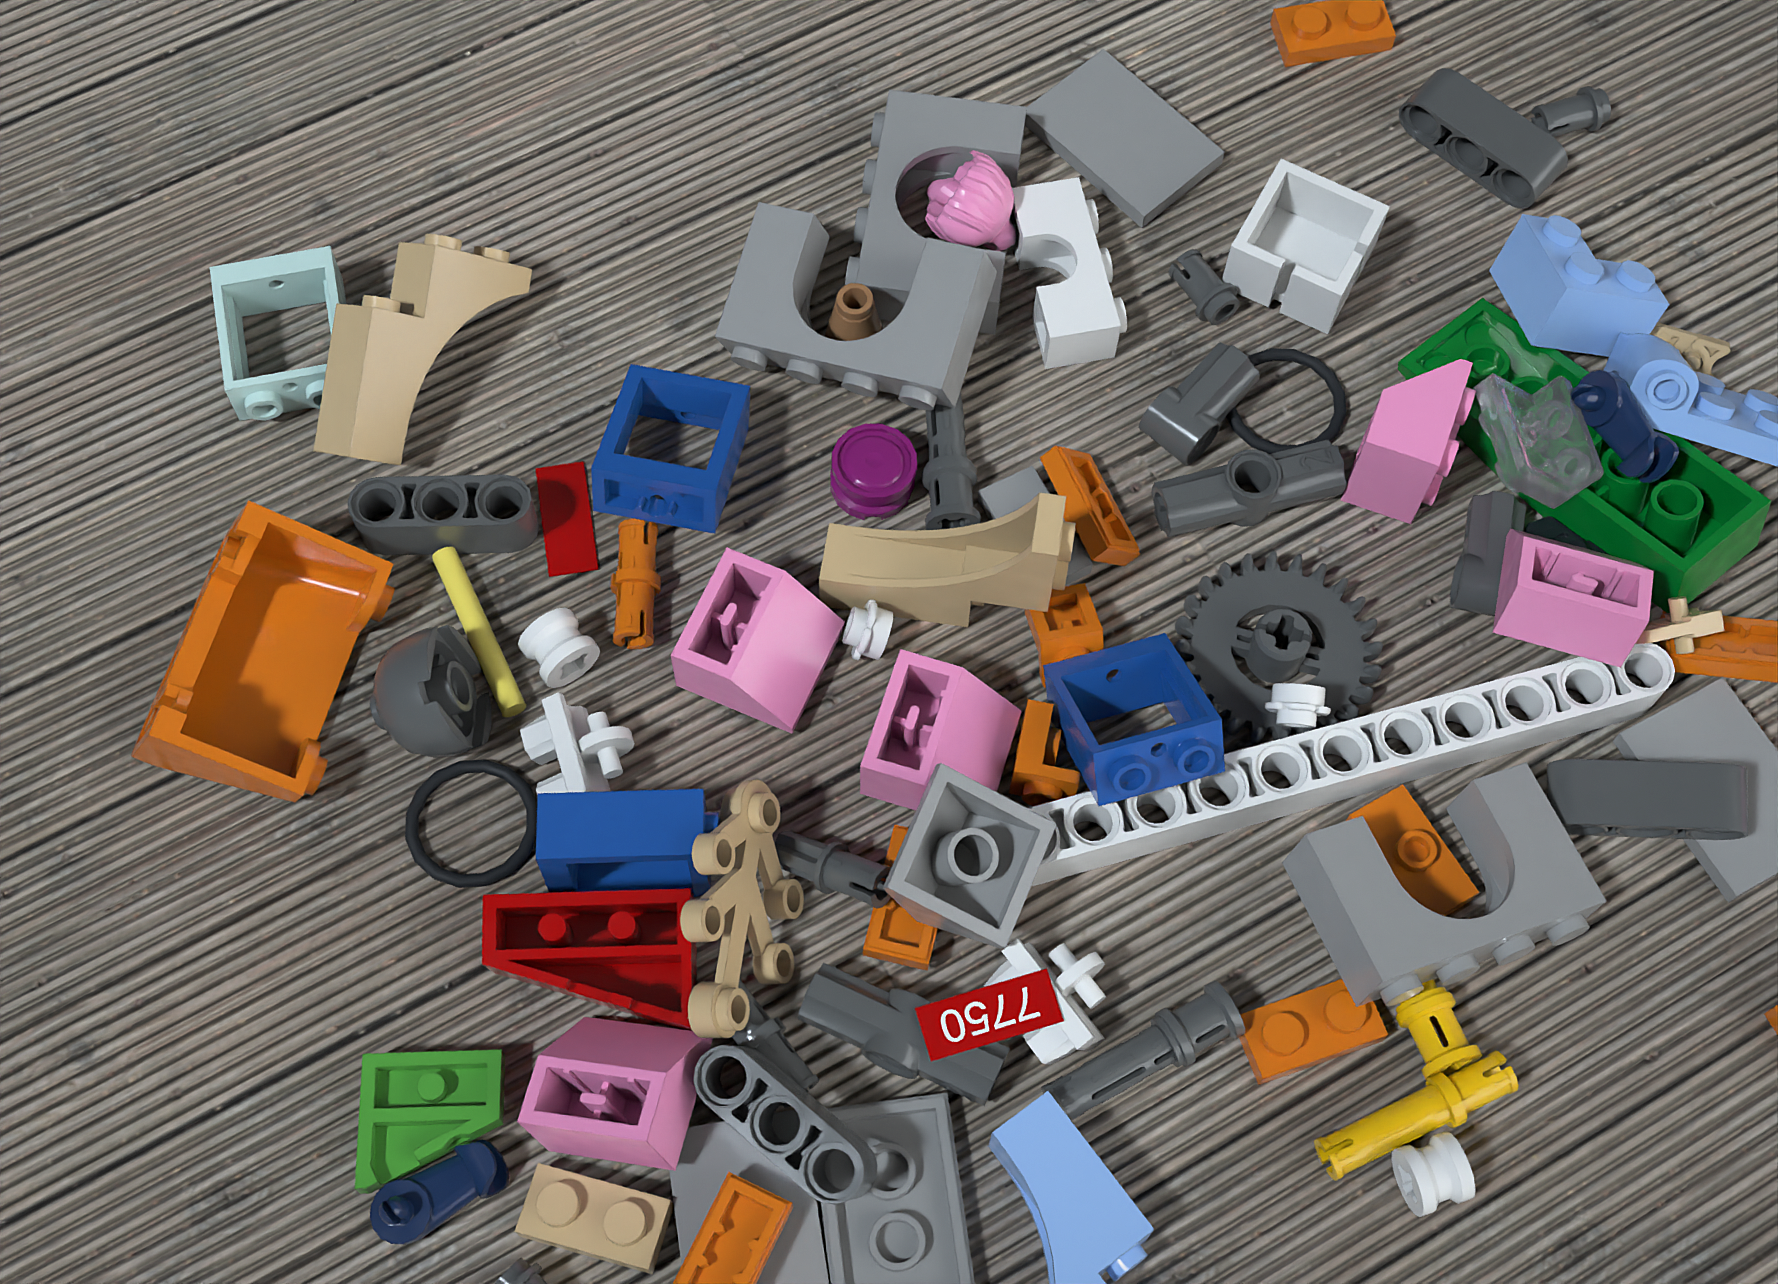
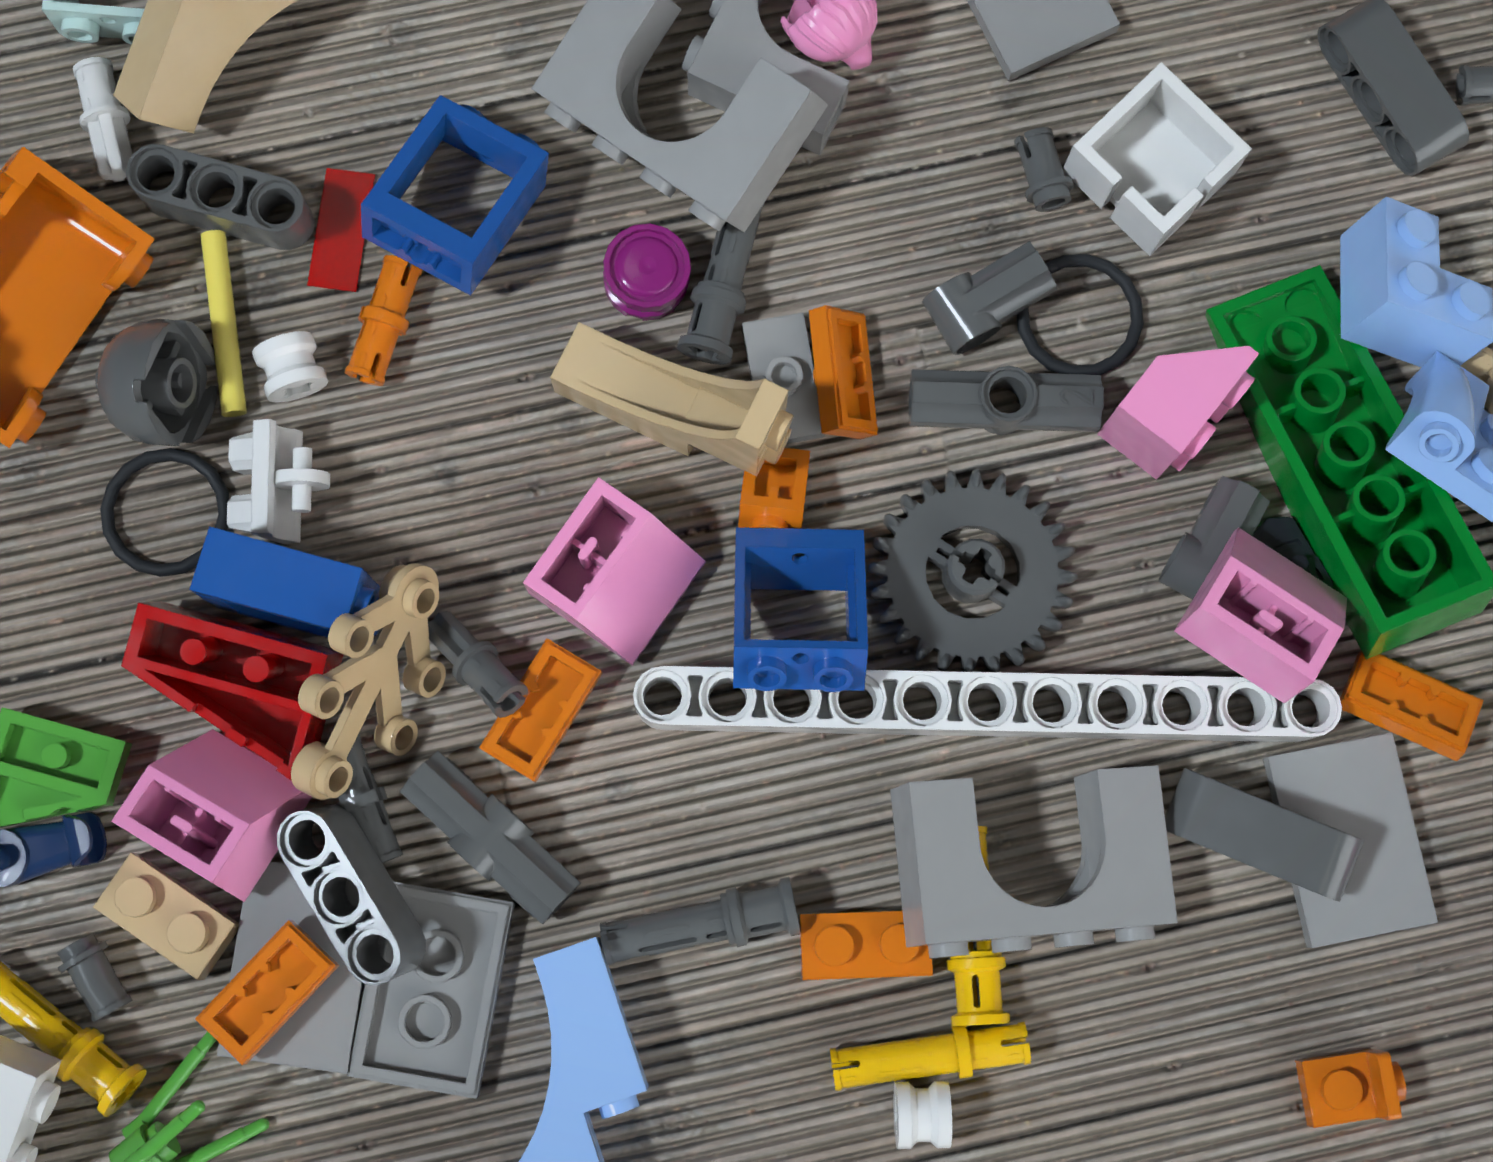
camera: 15 degrees right, 15 degrees up
(308, 477) = (103, 117): none -> white axle
(756, 641) = (475, 419): bright pink slope -> none
(853, 314) = (677, 111): medium nougat cone -> none
(868, 630) = (586, 436): white plate -> none
(968, 859) = (591, 704): light grey slope -> none
(989, 1014) = (566, 850): red sticker -> none
(1035, 759) = (704, 603): orange bracket -> none
(1057, 230) = (912, 62): white arch -> none
(1076, 1030) = (643, 842): white hips -> none
(1297, 704) = (961, 643): white plate -> none
(1417, 852) = (1022, 813): orange plate -> none
(1538, 439) = (1295, 449): clear bracket -> none
(1621, 423) = (1379, 440): dark blue piece -> none
(1682, 625) = (1364, 676): tan piece -> none

